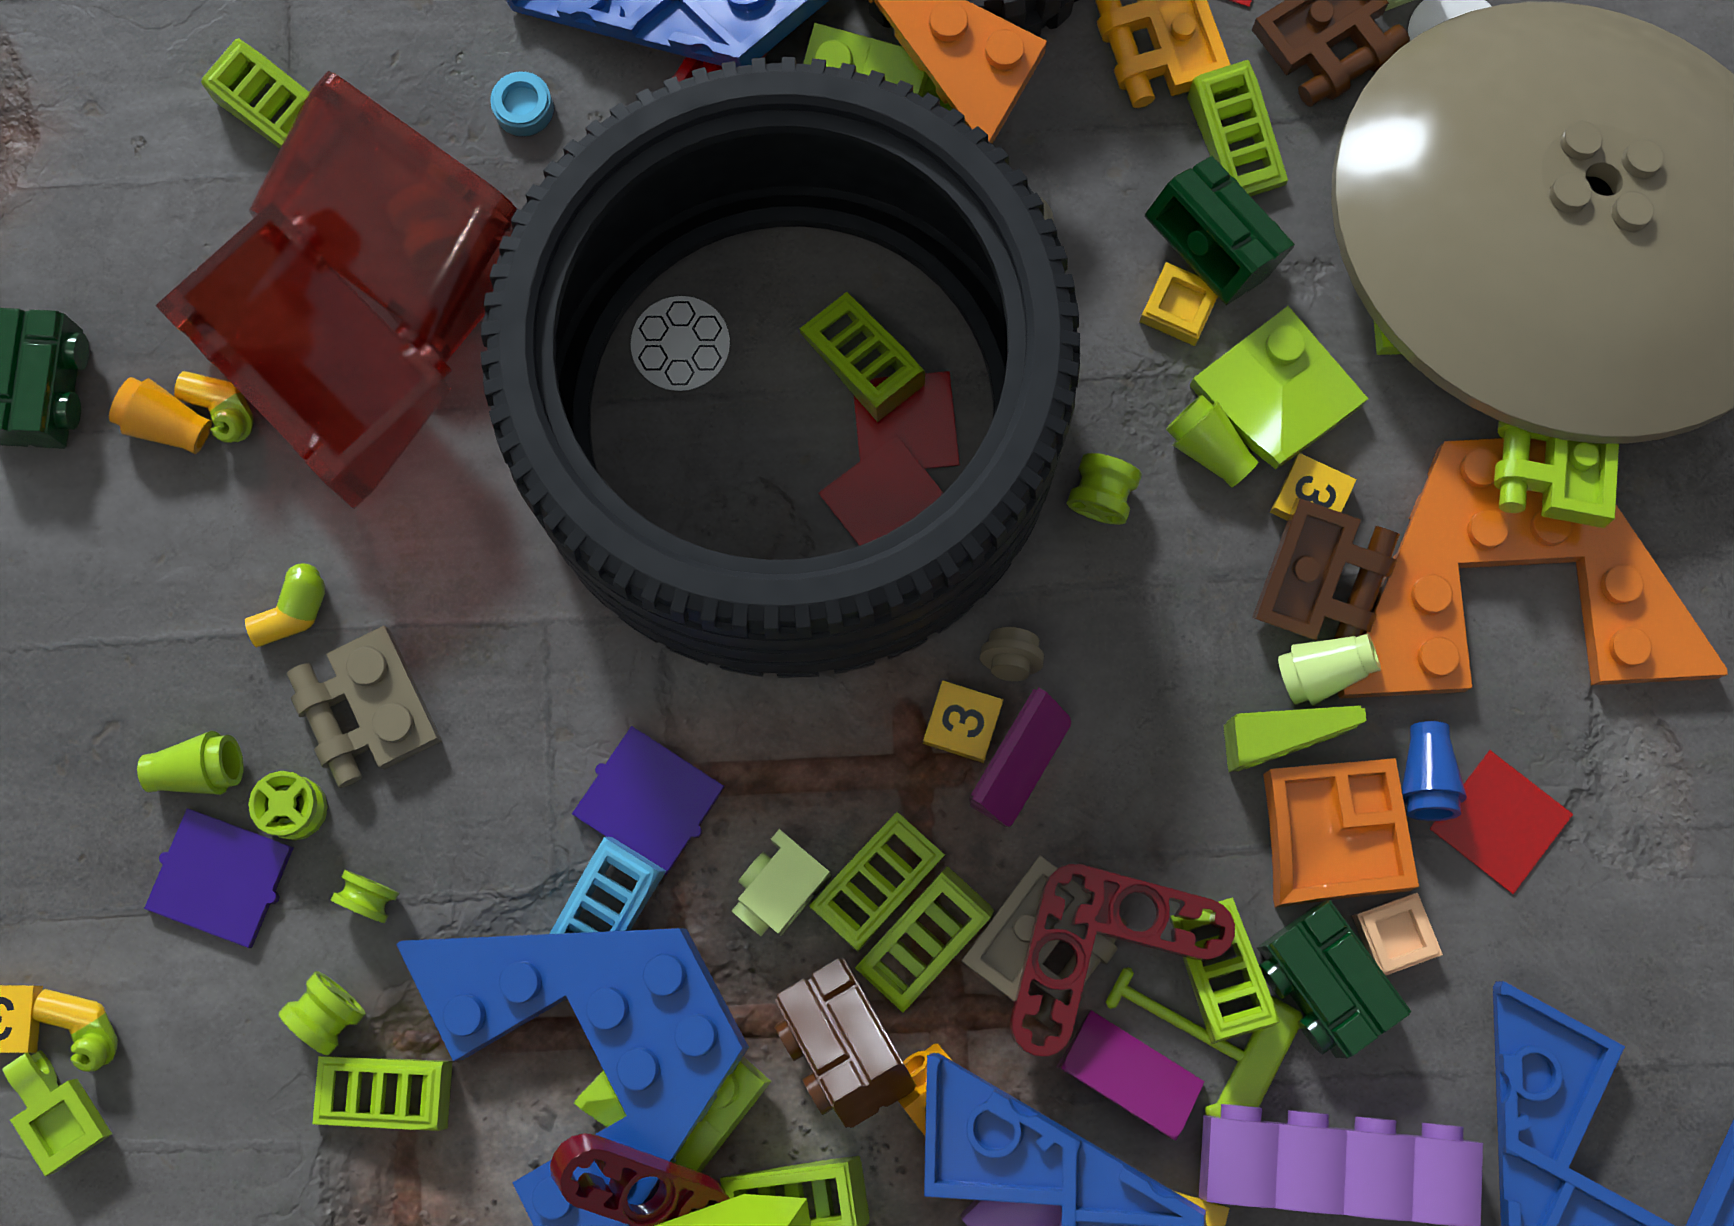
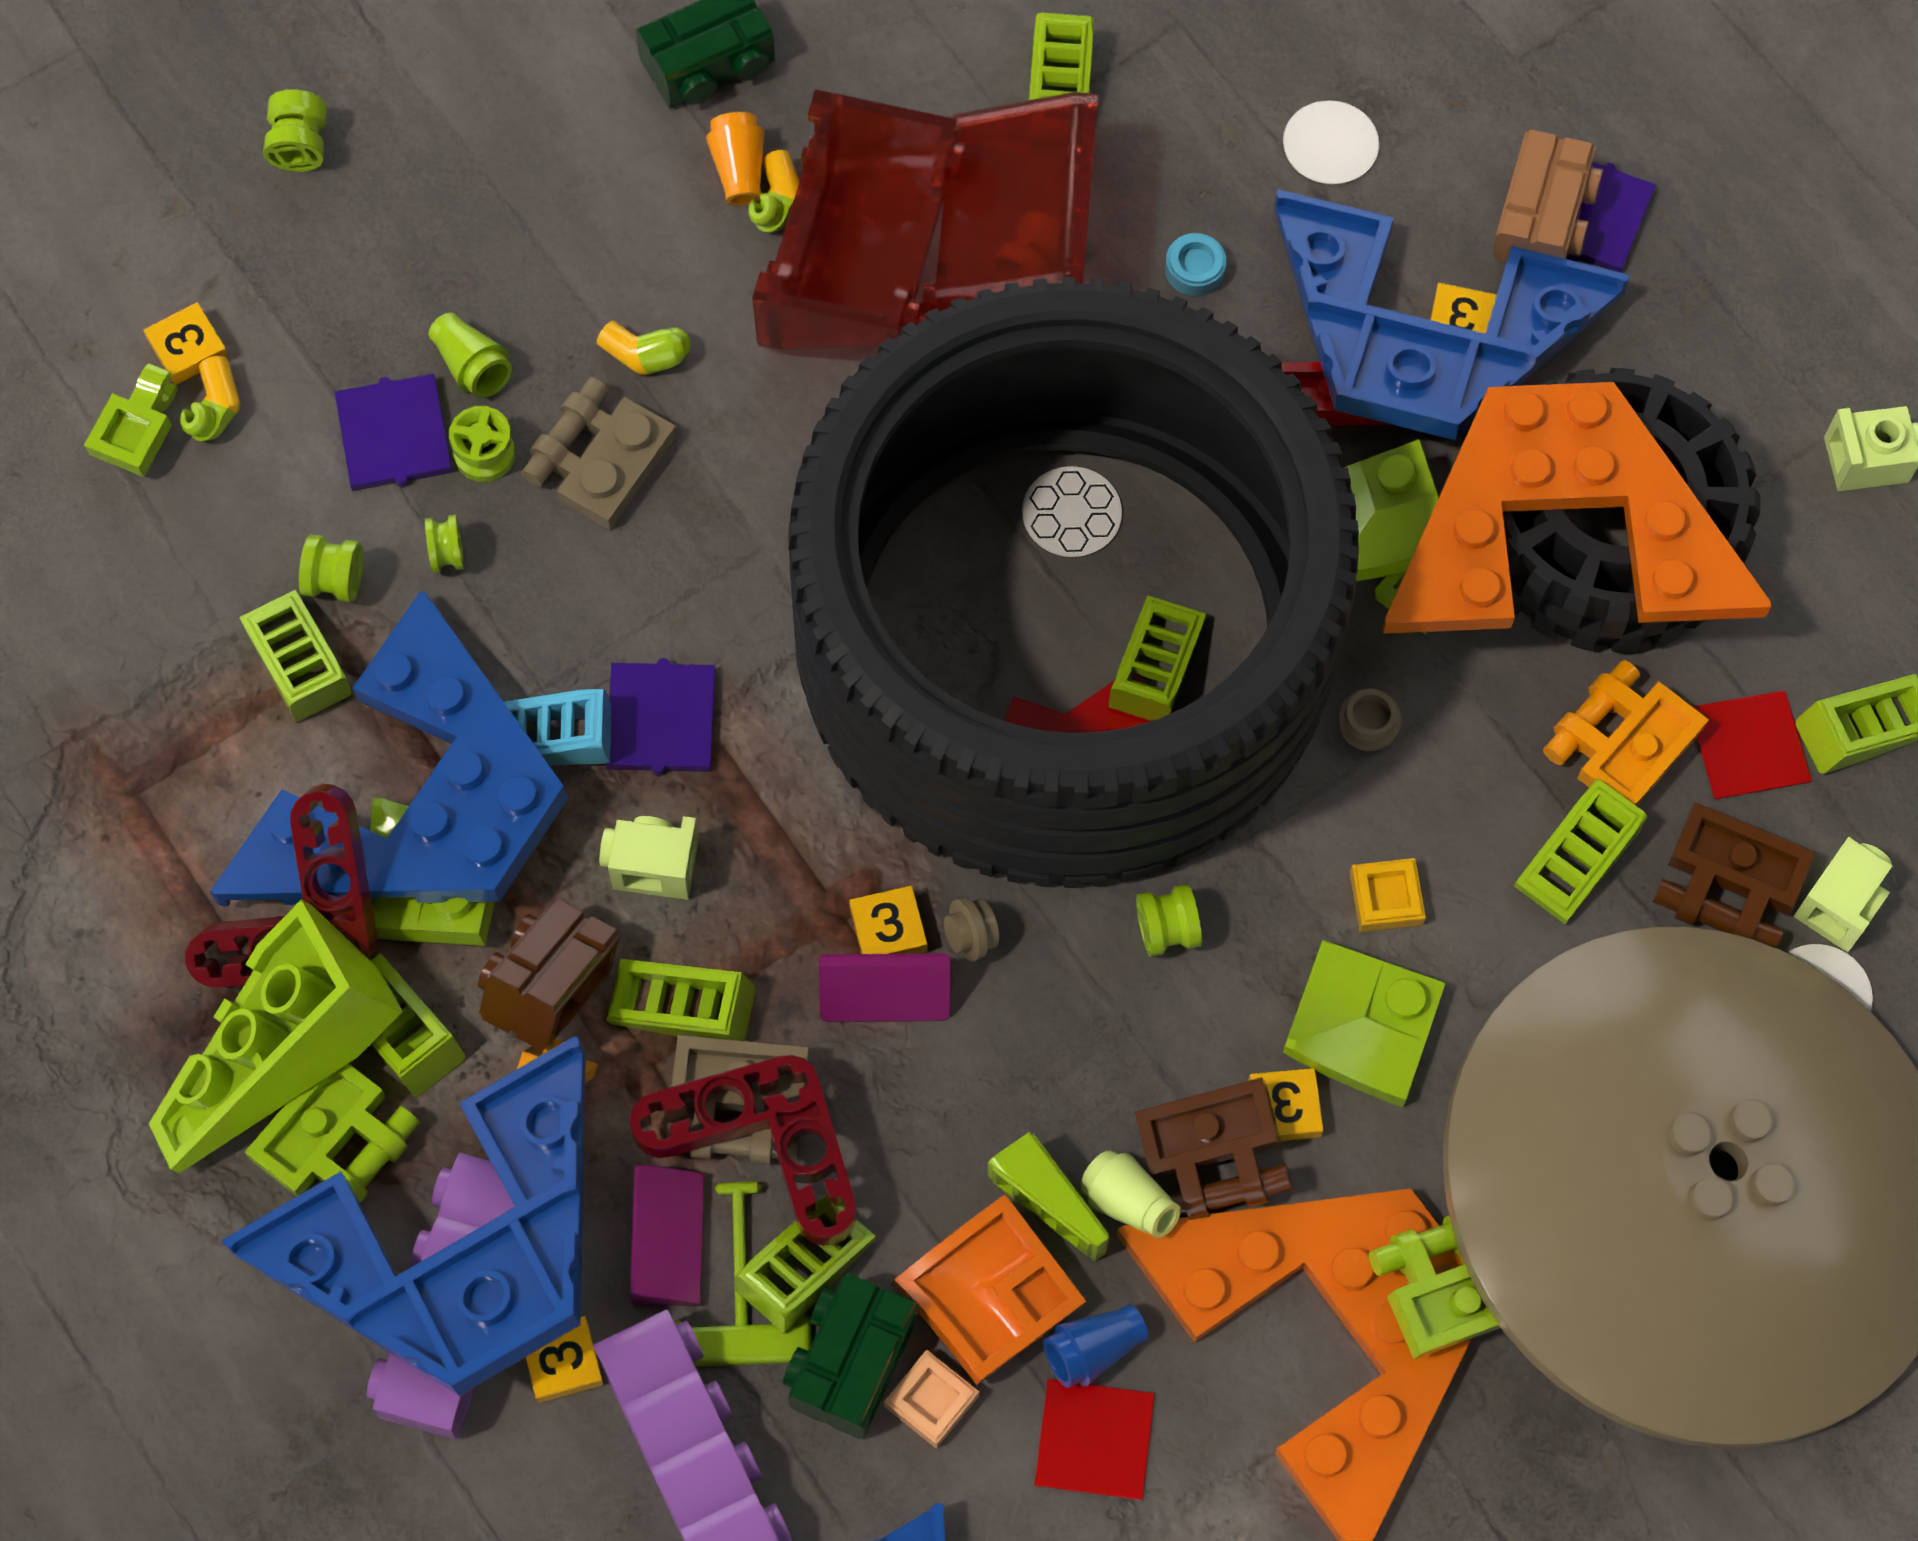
camera: 55 degrees right, 10 degrees down
(838, 919) = (685, 905): lime slope -> none
(1212, 441) = (1274, 986): lime cone -> none
(1219, 229) = (1471, 880): dark green brick -> none

